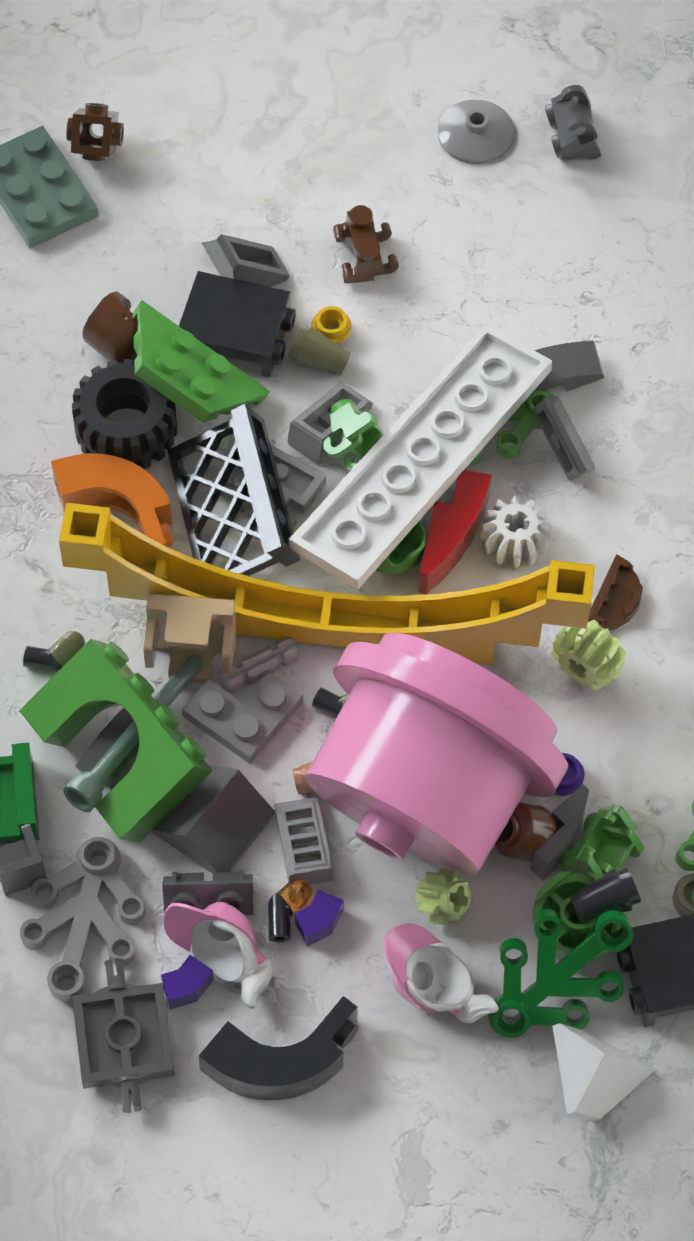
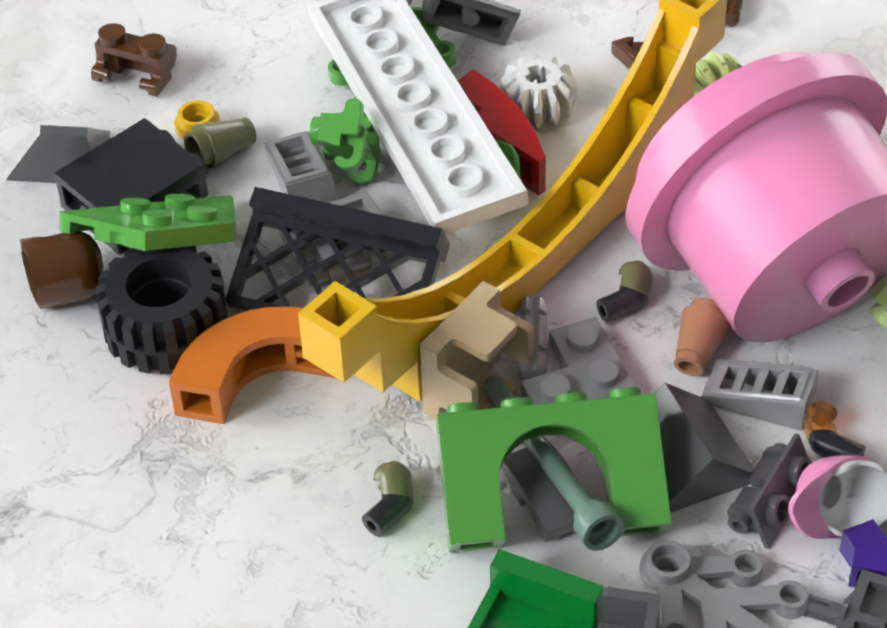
camera: 55 degrees left, 15 degrees down
(319, 918) = (858, 414): dark purple piece -> none

